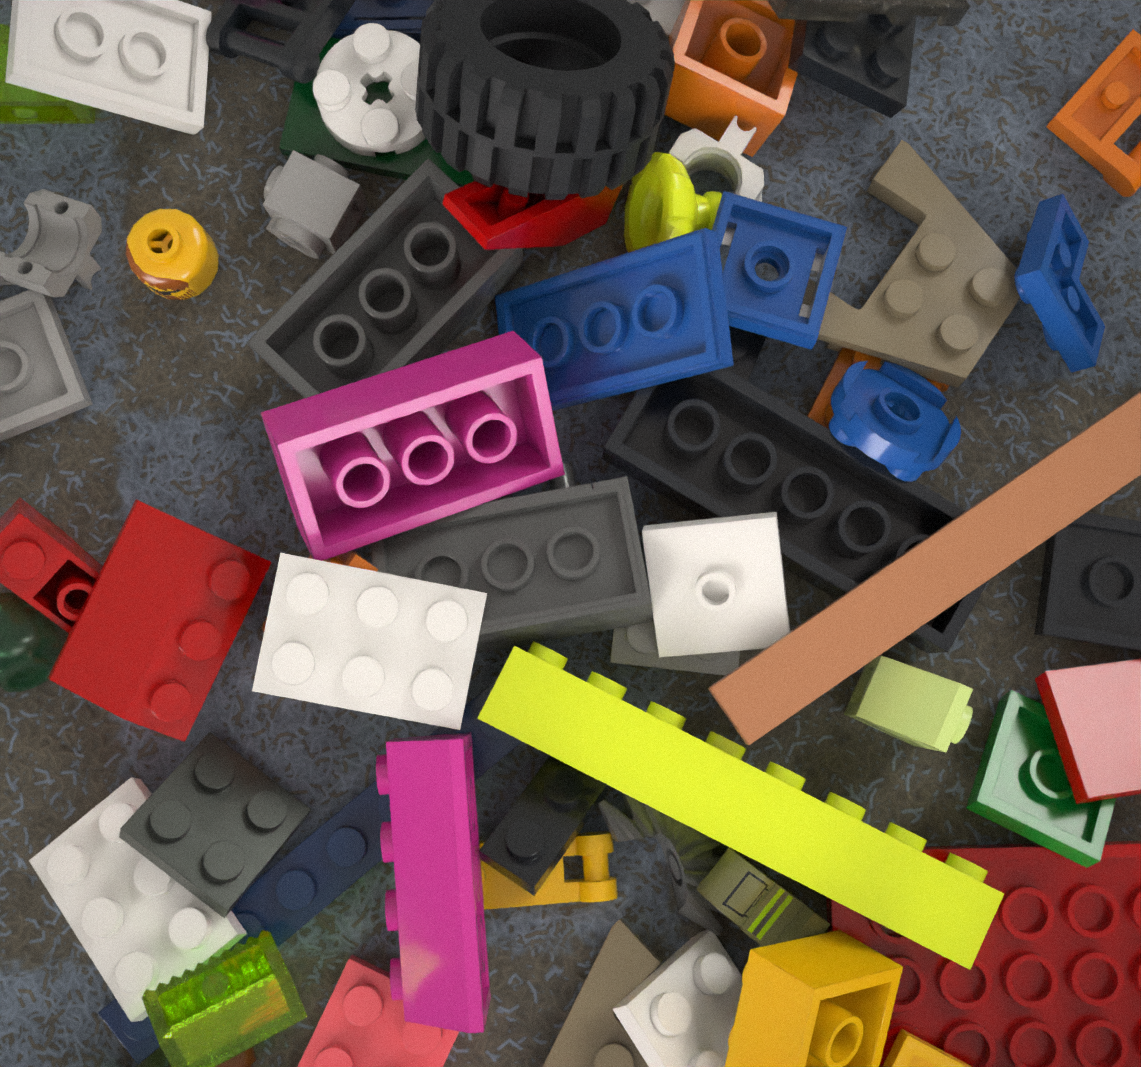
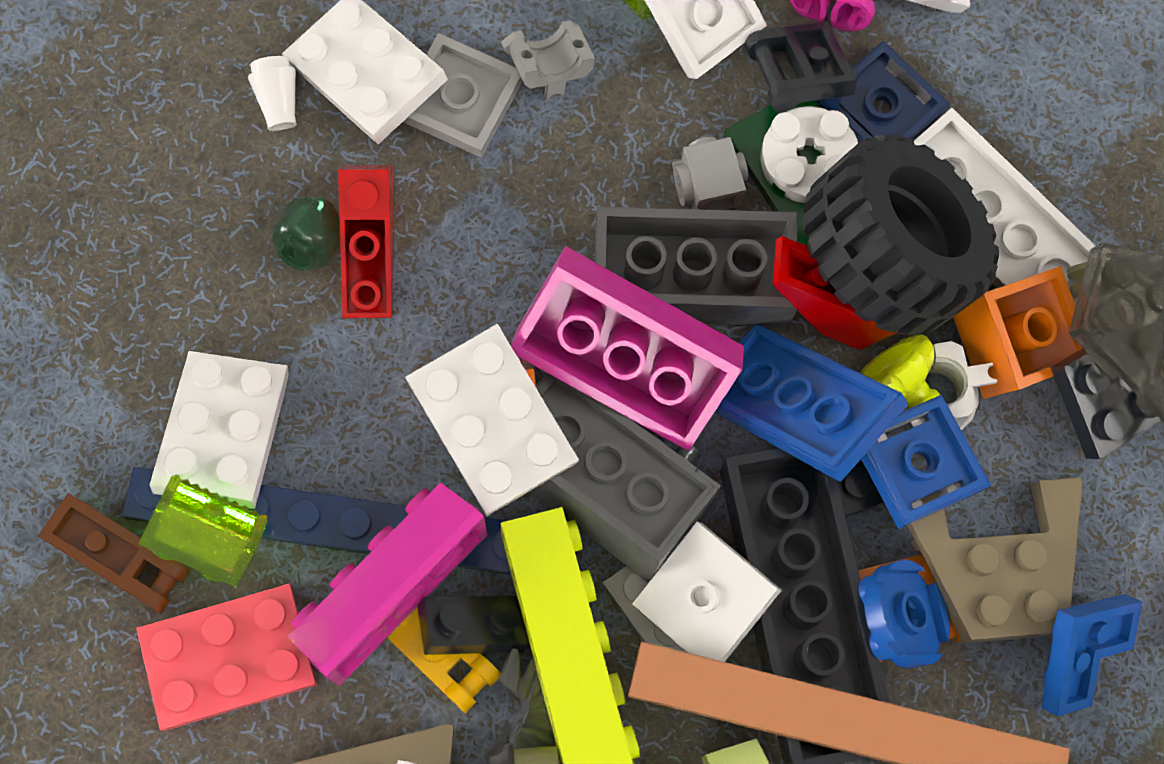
camera: 45 degrees right, 10 degrees down
(159, 621) = (395, 299): red slope -> none
(172, 254) = (608, 125): yellow head -> none
(215, 824) = (303, 435): pearl dark grey plate -> none

